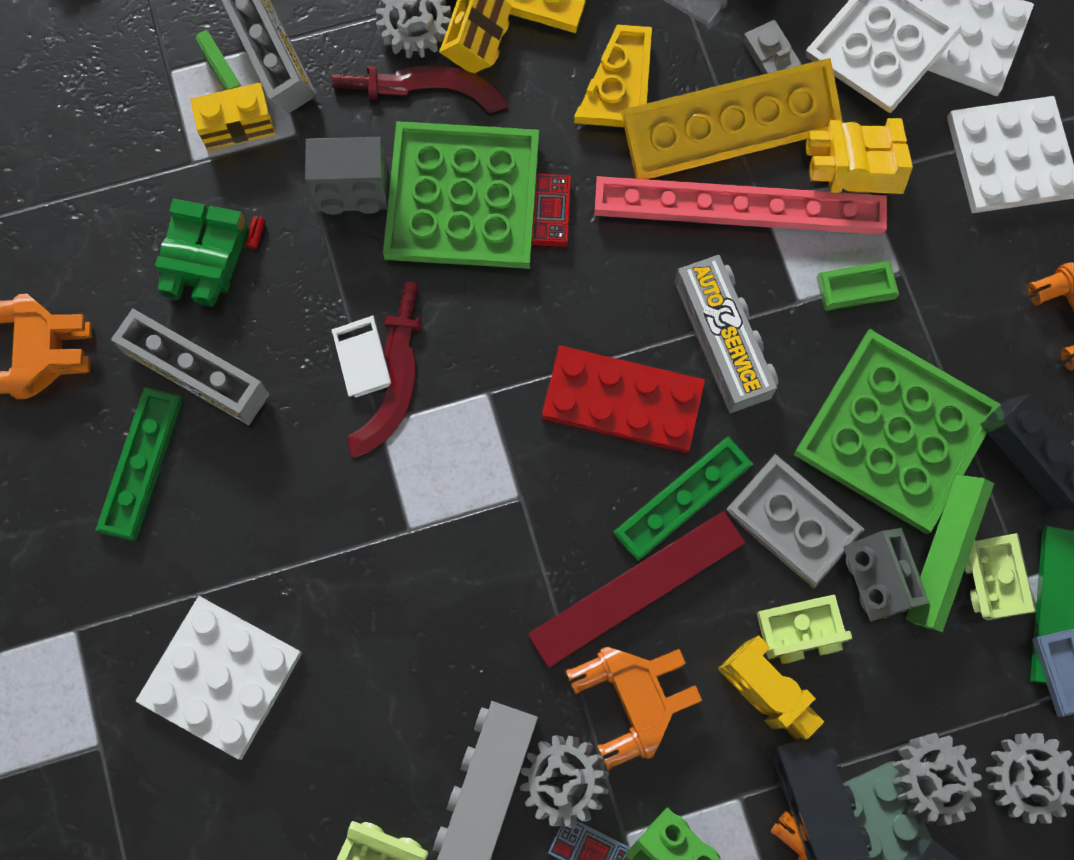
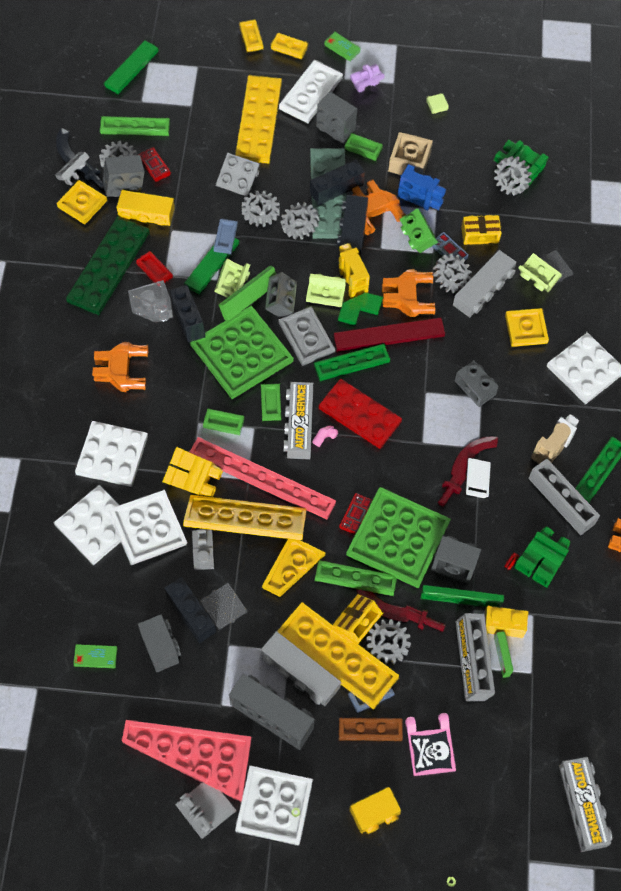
camera: 160 degrees left, 10 degrees down
(232, 469) = (560, 438): none -> tan hips
(292, 138) = (461, 596): none -> green tile
(366, 718) = (526, 327): none -> yellow plate
(426, 536) = (476, 383): none -> dark grey brick
(509, 102) = (356, 578): none -> bright green tile
(672, 327) = (323, 433): none -> bright pink arm
(734, 618) = (364, 302): none -> green tile
(794, 356) = (270, 402): none -> bright green tile

